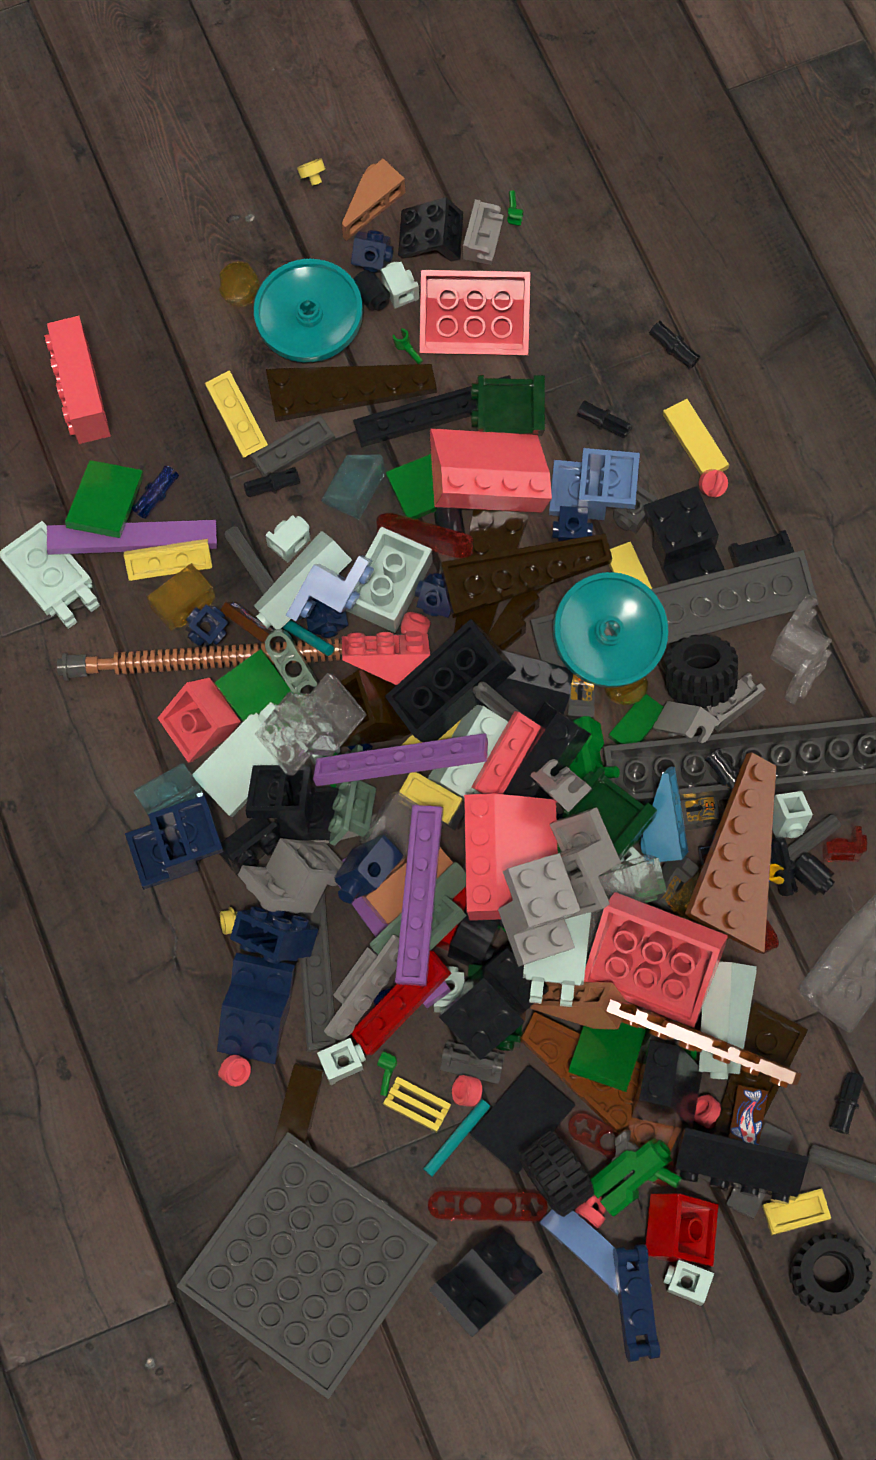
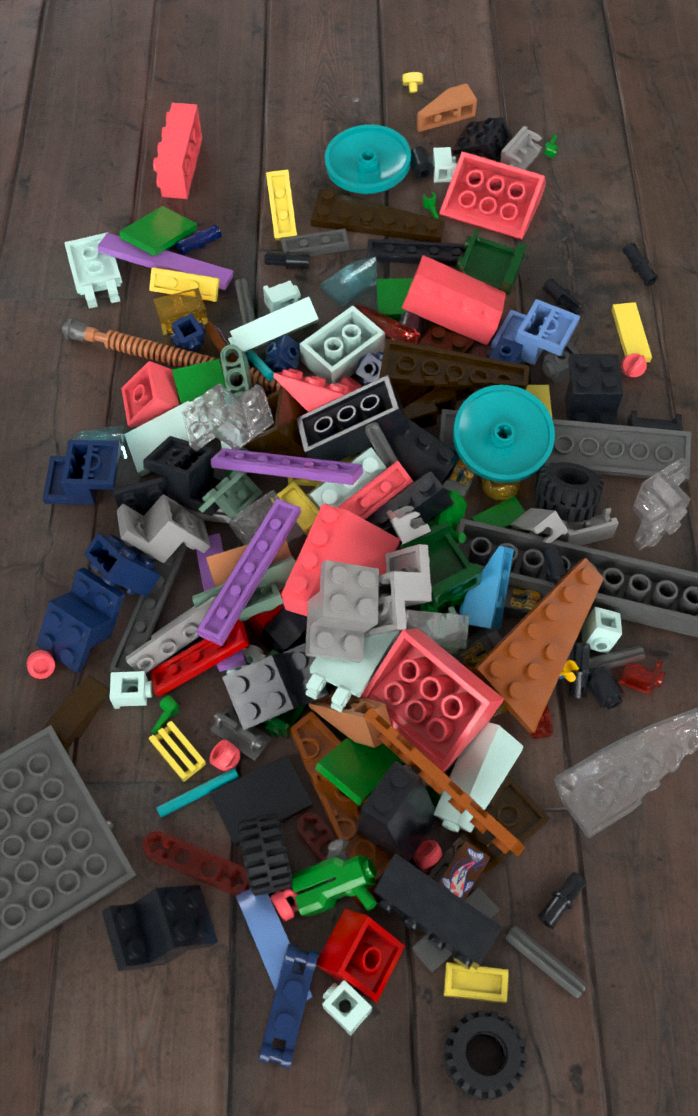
camera: 20 degrees right, 10 degrees down
(239, 283) = (325, 129): clear yellow hair -> none
(330, 588) = (294, 328): bracket -> none
(360, 877) = (213, 540): dark blue torso -> none
(371, 250) = (432, 136): dark blue brick -> none

